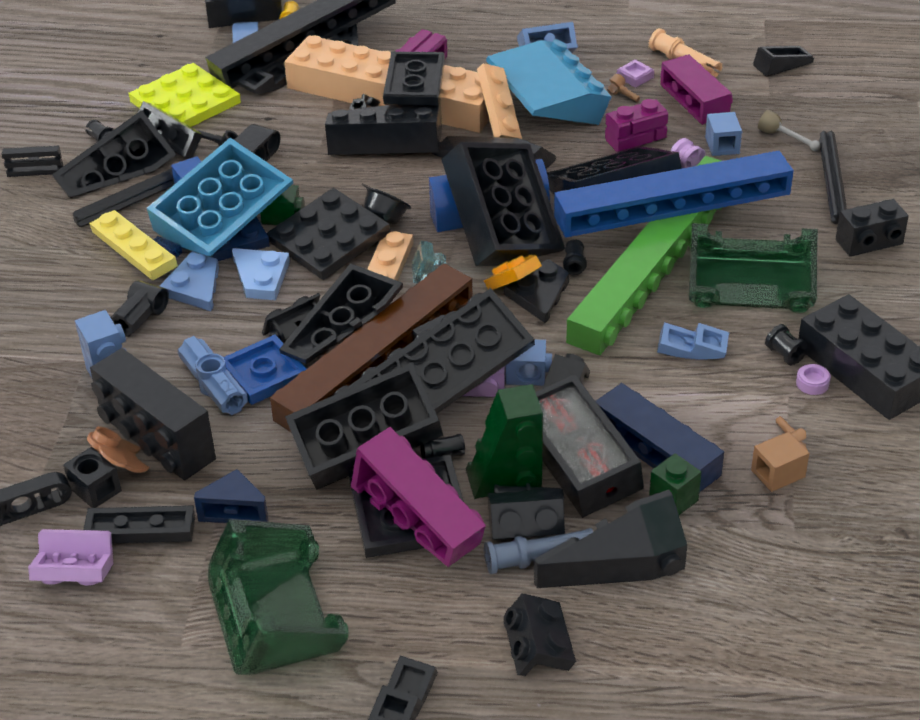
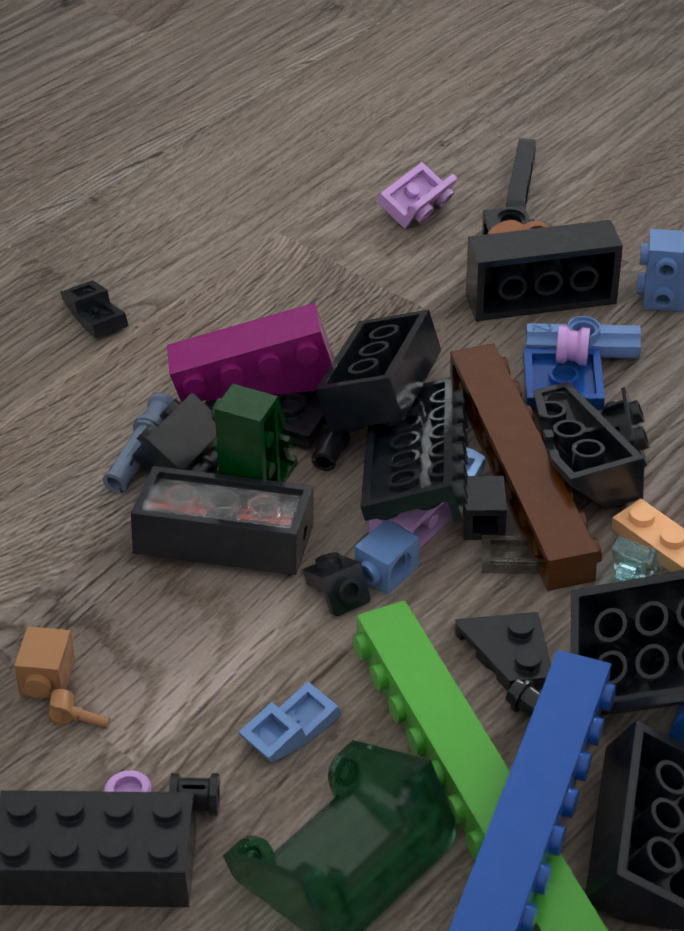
camera: 125 degrees right, 0 degrees up
(143, 523) = (423, 242): black plate -> none
(230, 499) = (390, 293): dark blue slope -> none
(242, 354) = (572, 345): none -> lavender wheel
(269, 598) = (248, 268): clear green windscreen -> none
(512, 271) = (535, 611): light orange wing -> none
(538, 634) = (55, 398): black bracket -> none
(631, 548) = (64, 489): black wedge -> none
(658, 435) = (176, 591): dark blue brick -> none
(679, 478) = (102, 561): dark green brick -> none

